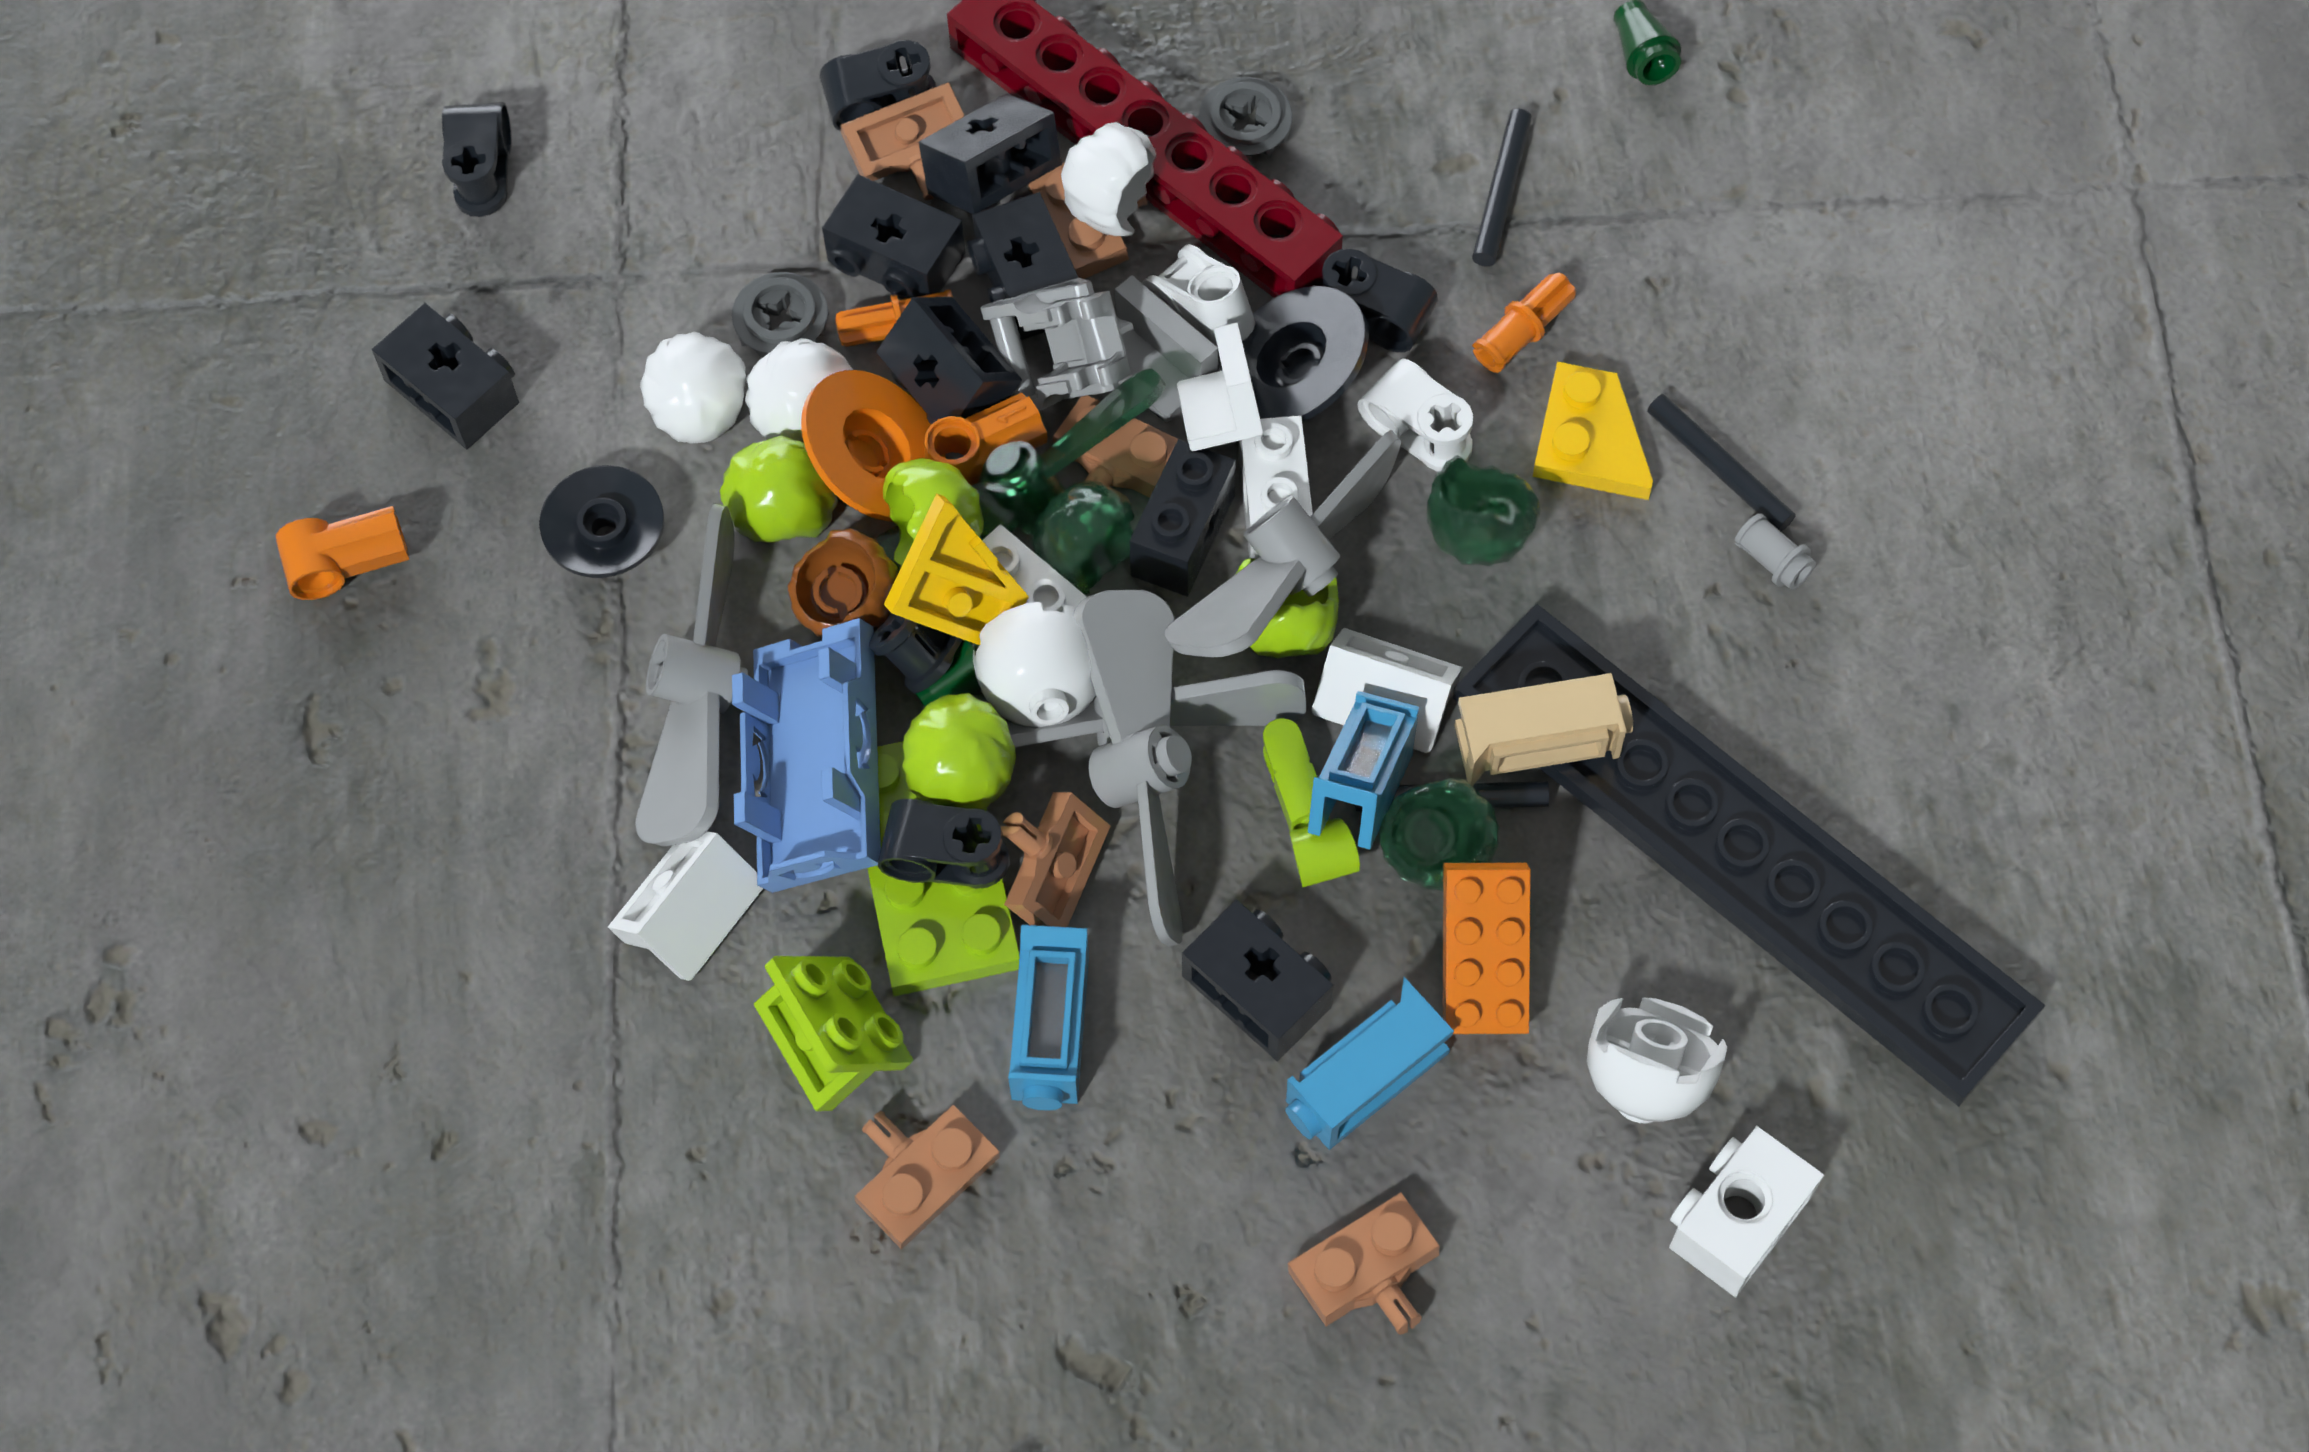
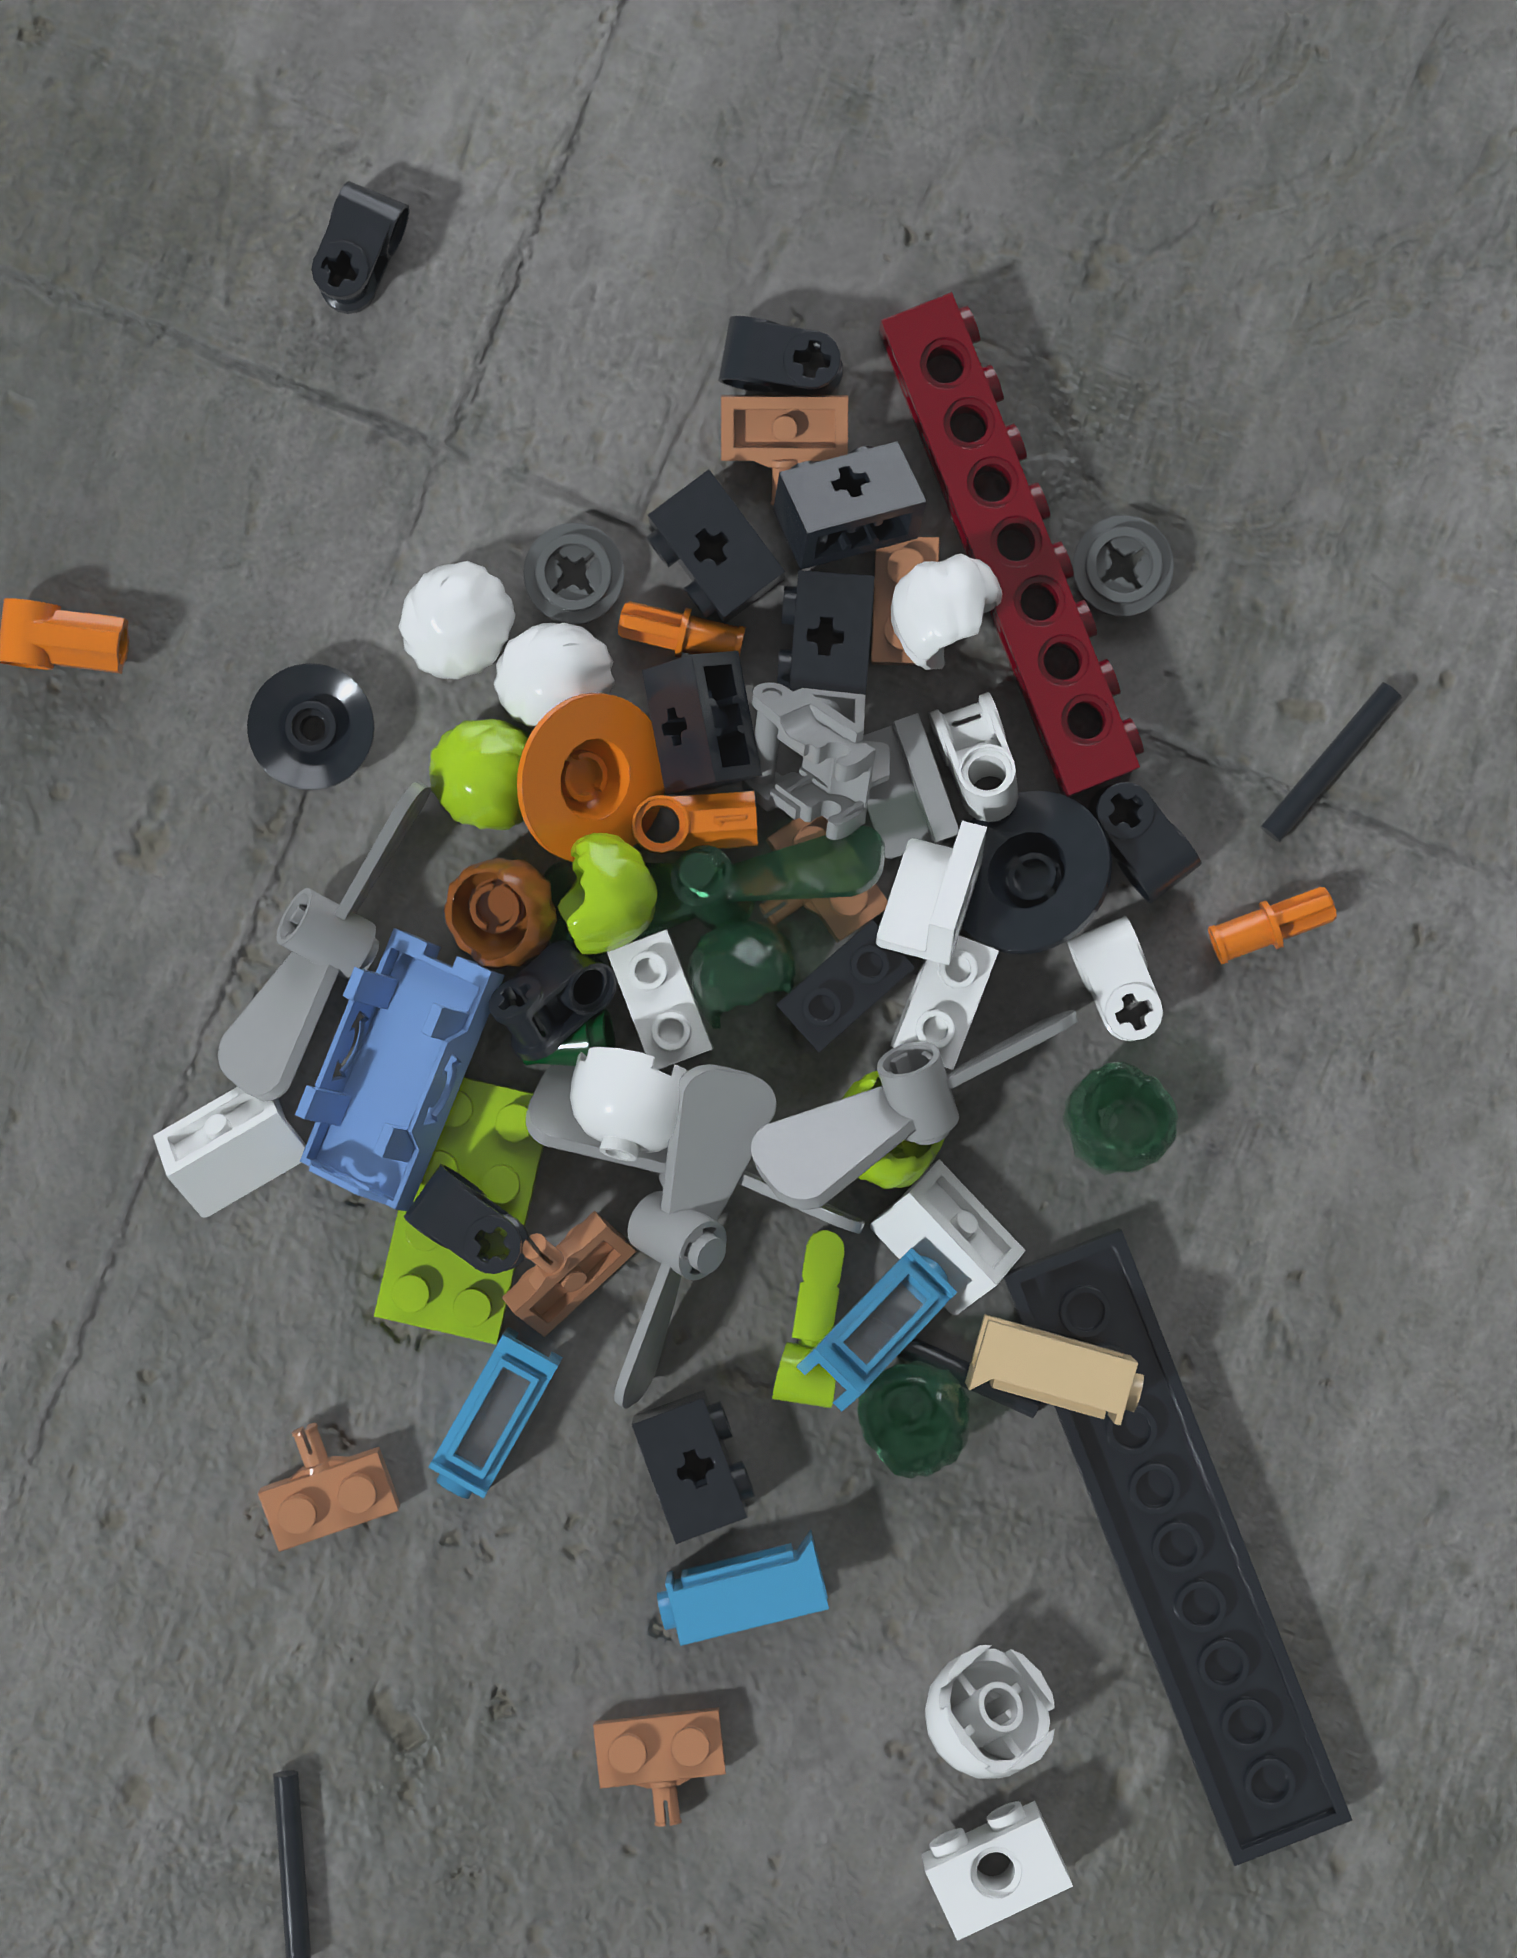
camera: 20 degrees right, 25 degrees up
(447, 374) = (203, 468): black brick -> none
(829, 1025) = (306, 1332): lime bracket -> none
(952, 578) = (585, 998): yellow wing -> none
(958, 753) = (520, 1148): lime hair -> none
(1486, 947) = (897, 1545): orange piece -> none
(1591, 435) = (1270, 1069): yellow wing -> none
(1720, 462) = (1373, 1157): black bar -> none
(1777, 553) = (1369, 1278): light grey pin -> none

